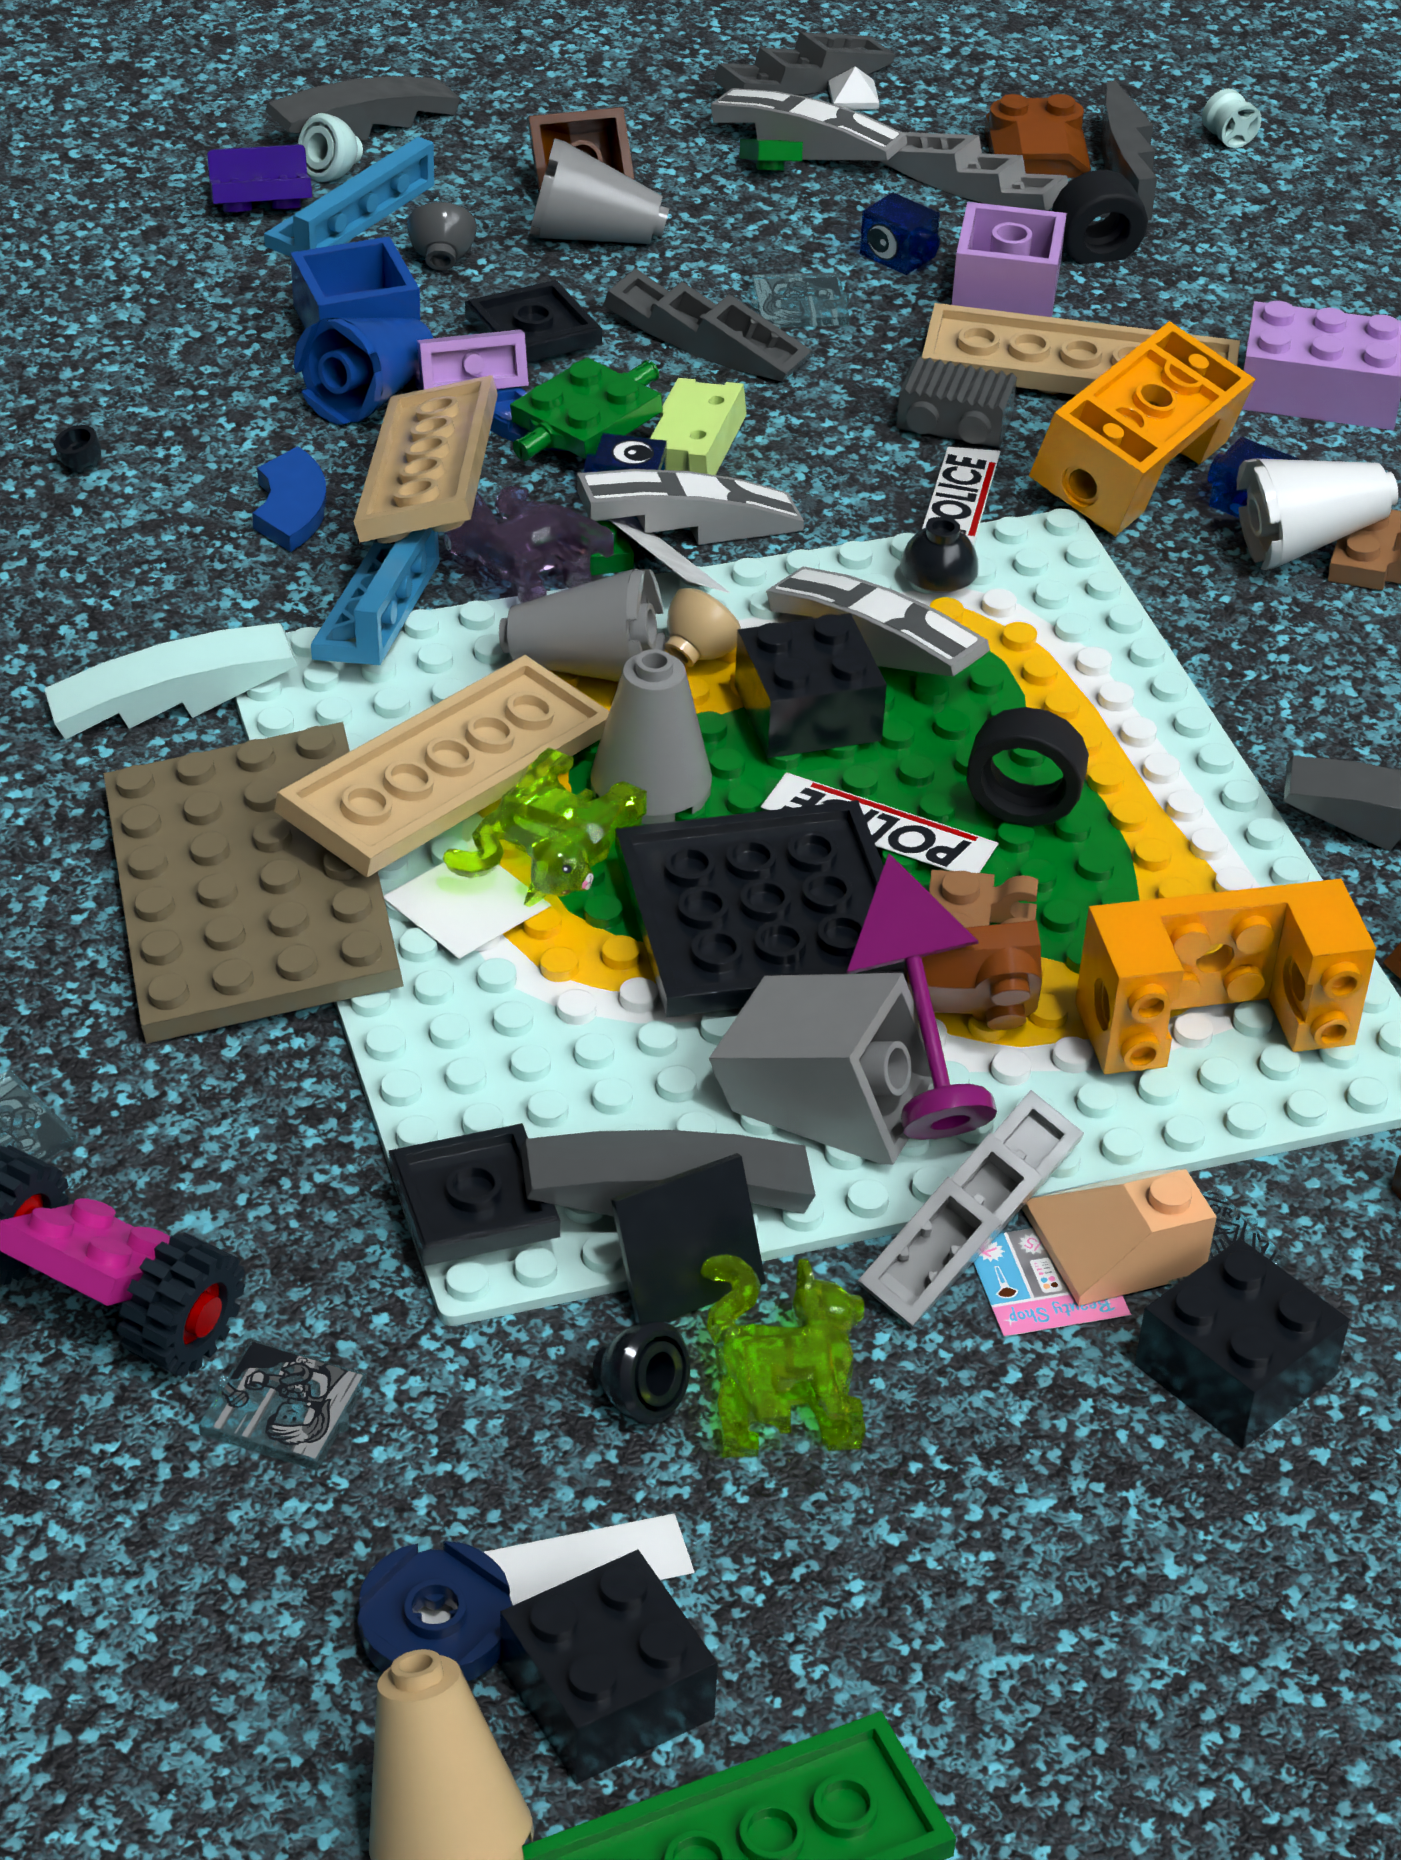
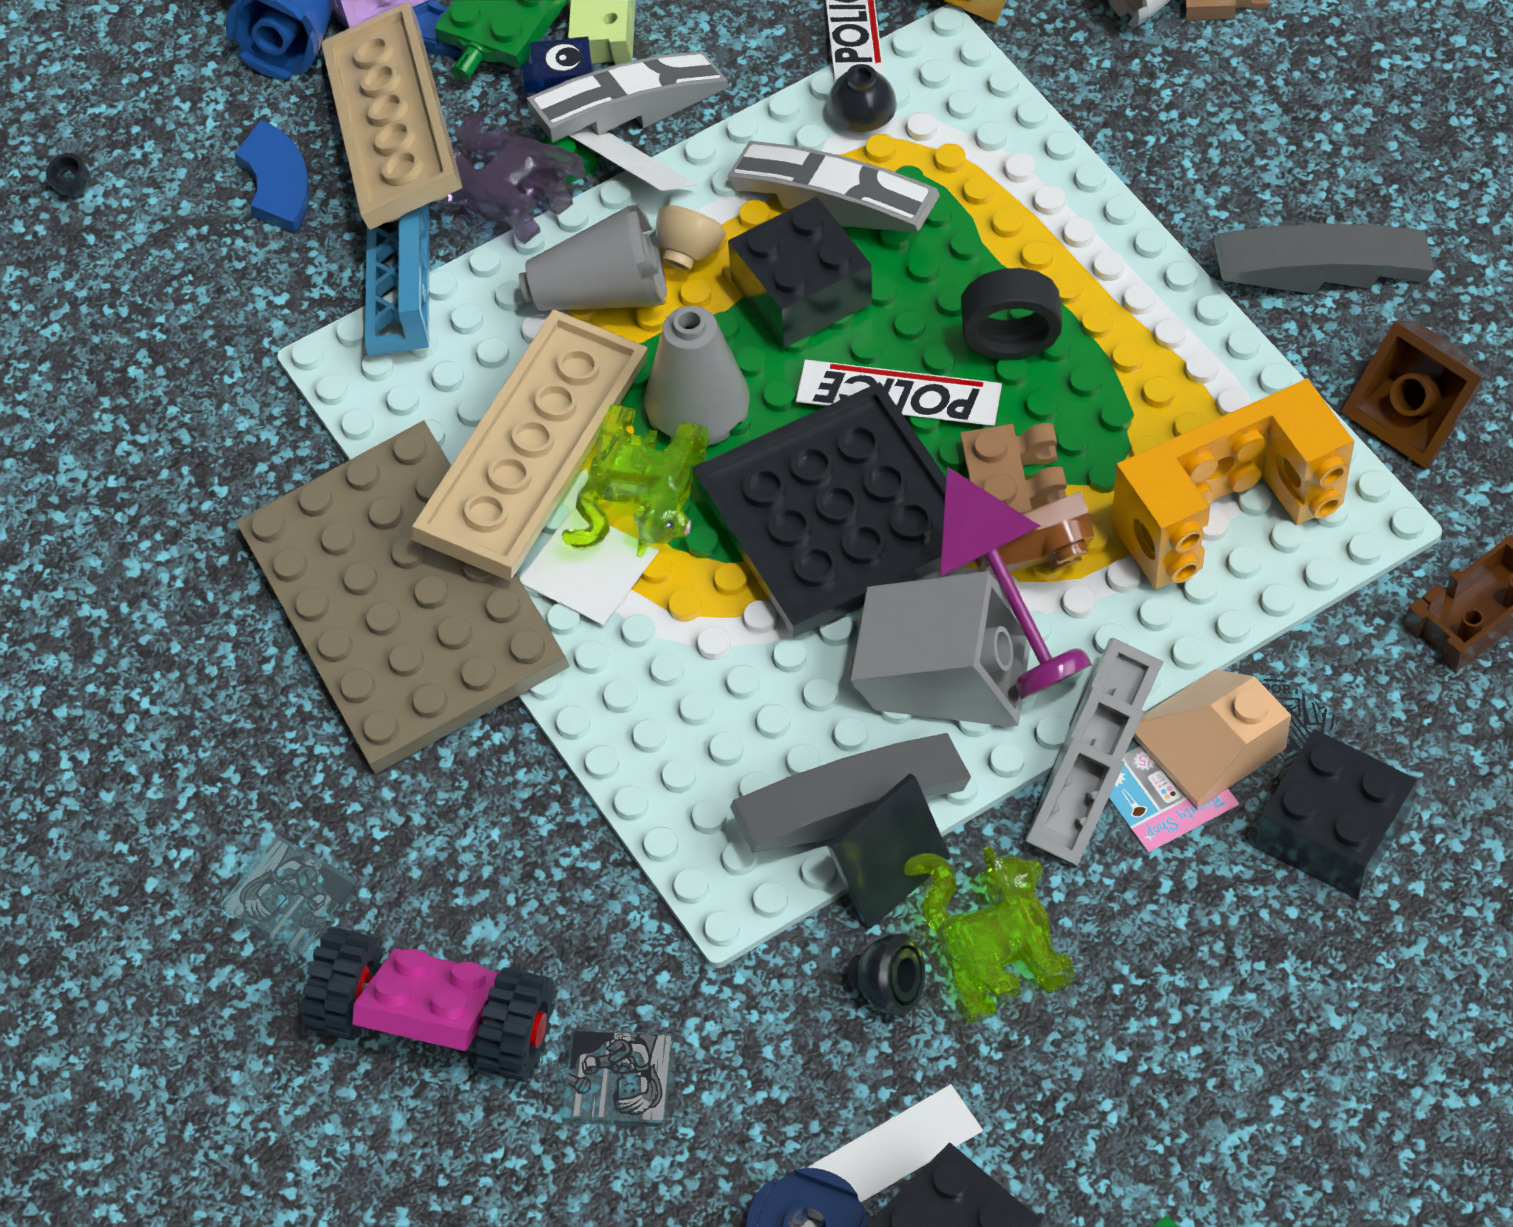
camera: 10 degrees left, 15 degrees up
(189, 671) = (246, 408): light aqua slope -> none
(469, 1195) = (700, 855): black plate -> none

